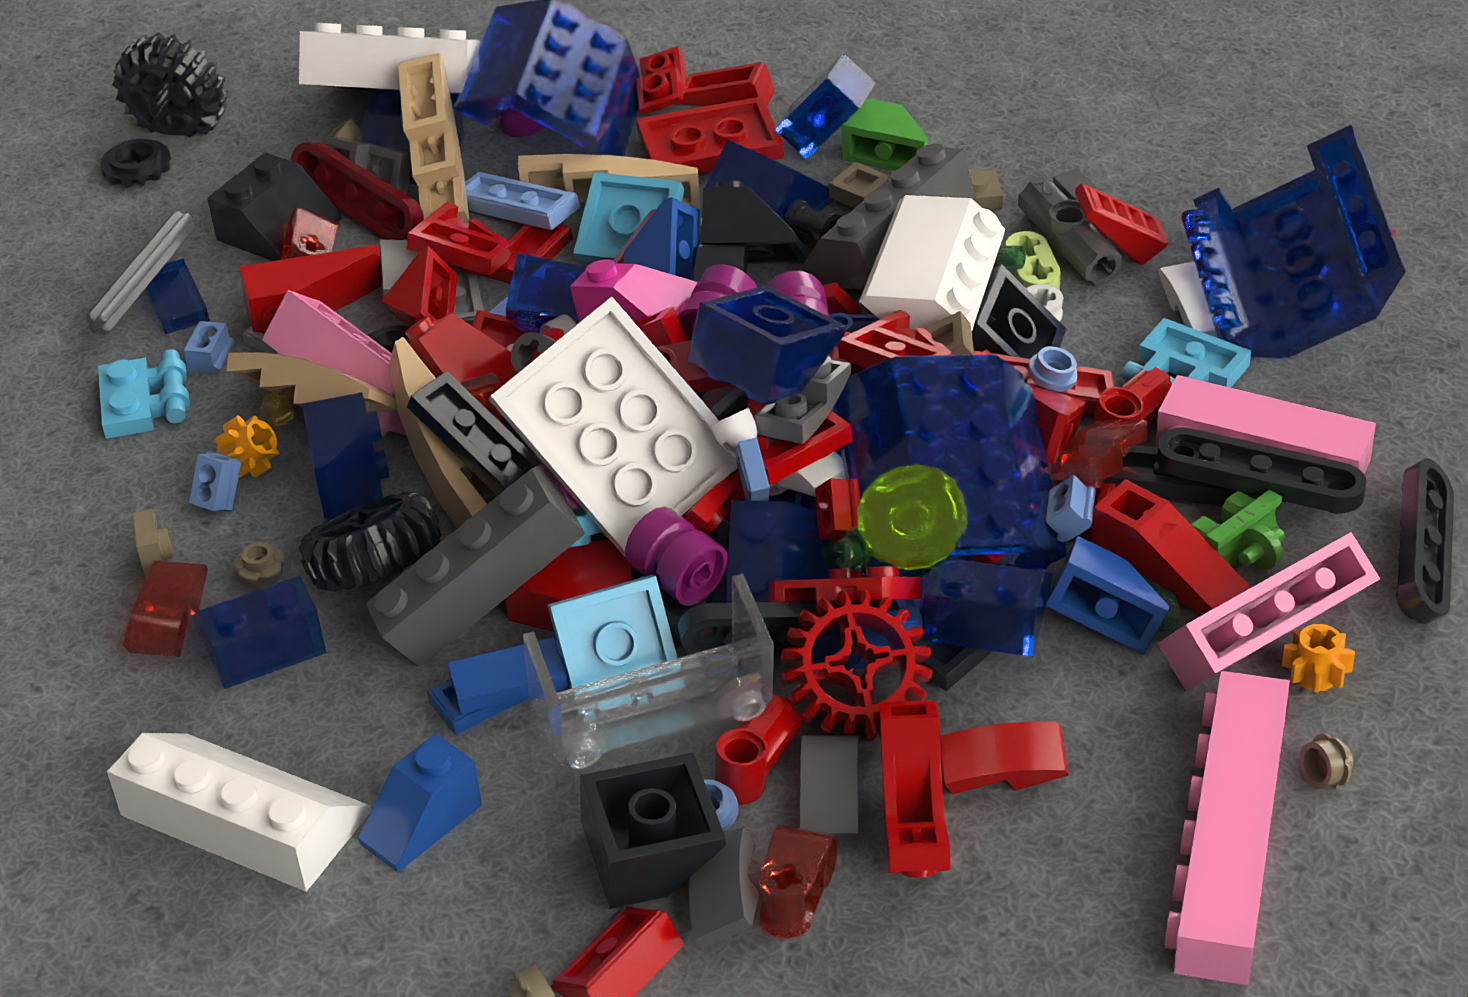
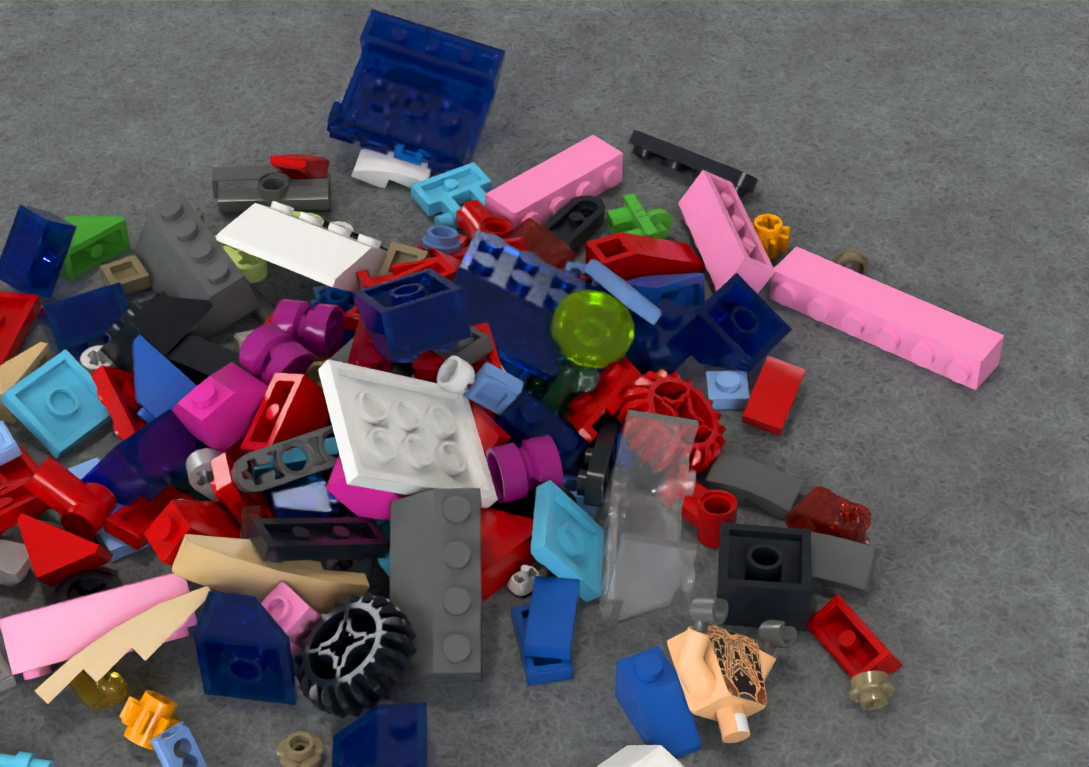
camera: 70 degrees left, 0 degrees up
(393, 473) = (291, 614): none -> bright pink bracket
(465, 831) = (723, 669): none -> light nougat torso
(482, 279) = (79, 504): none -> red piece
(837, 507) = (541, 367): red piece -> none
(913, 789) = (794, 447): red arch -> none
(994, 707) = (727, 389): none -> light blue plate
(1013, 525) = (623, 291): none -> medium blue tile
(1089, 672) = (737, 327): none -> clear blue slope
(1261, 468) = (600, 193): black plate -> none

